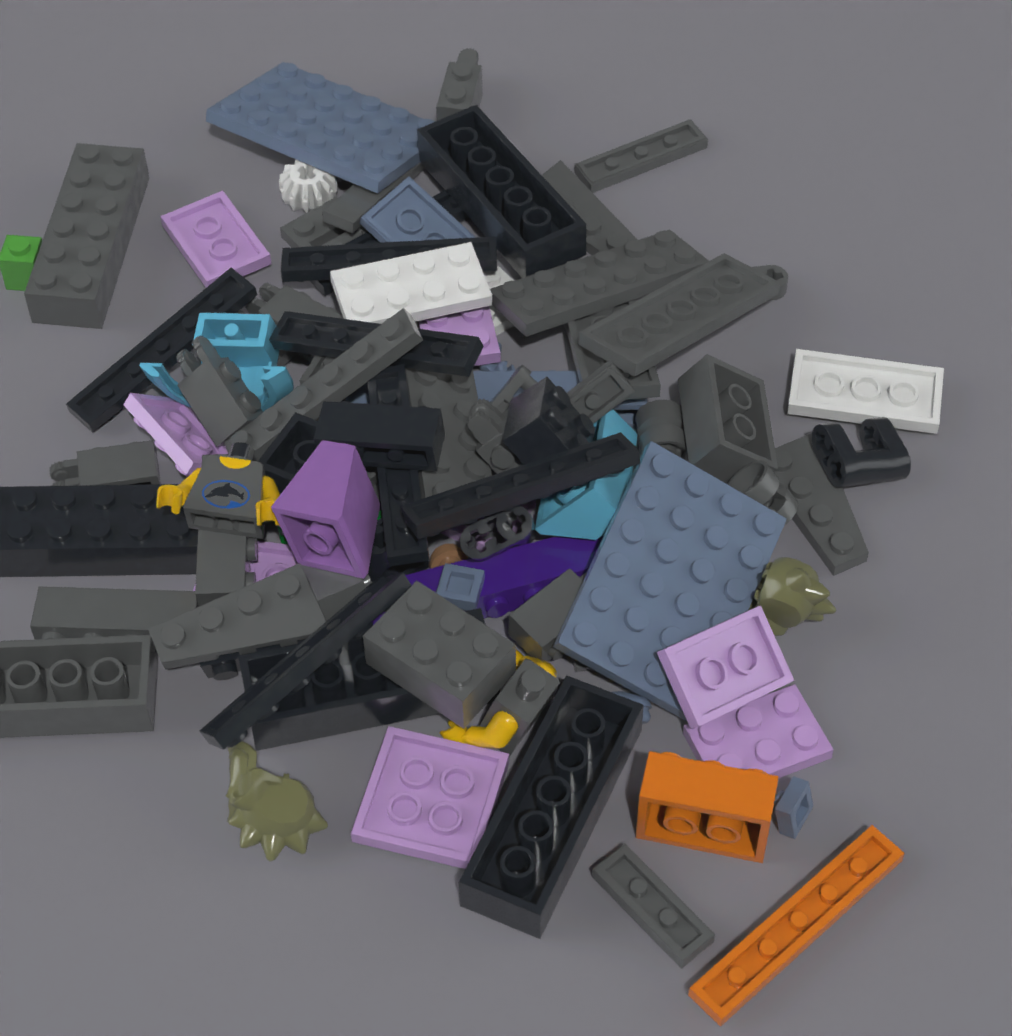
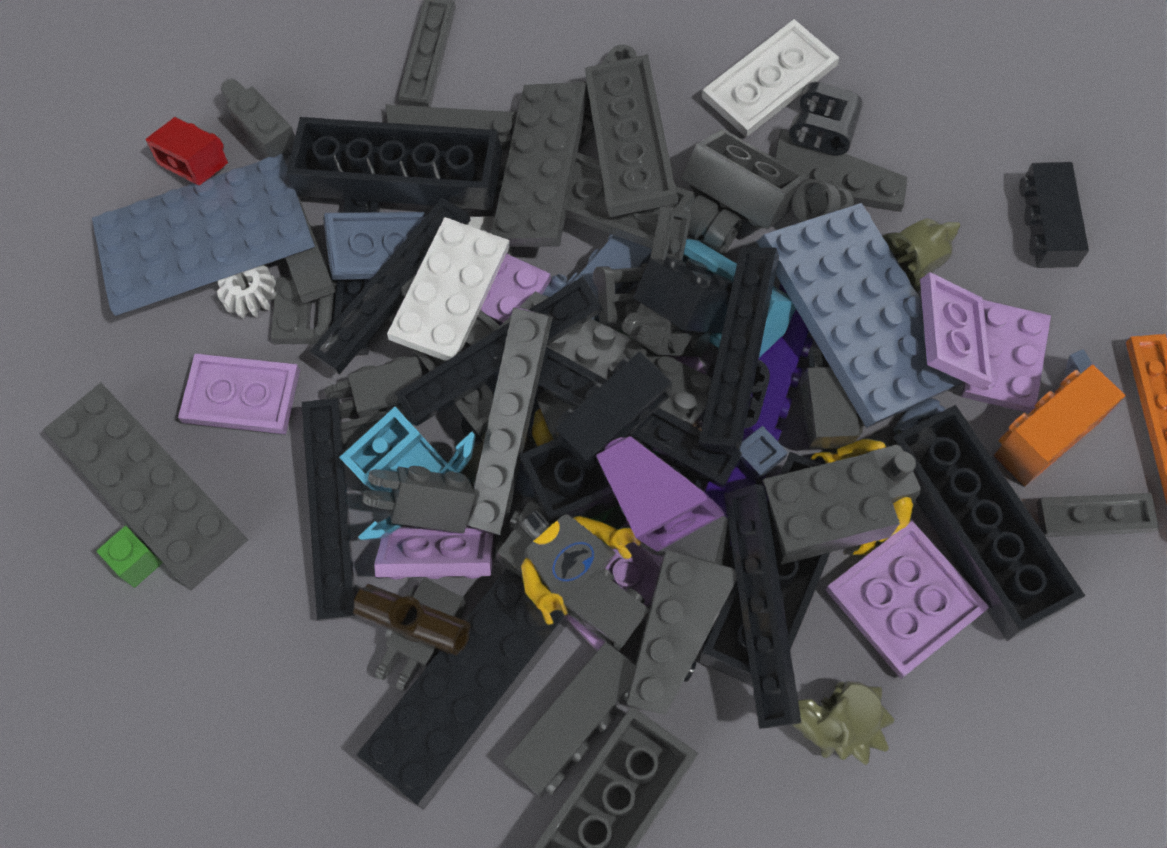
camera: 50 degrees left, 15 degrees up
(104, 445) = (429, 627): none -> dark brown piece
(391, 71) = (187, 150): none -> red brick
(946, 688) = (1054, 215): none -> black brick

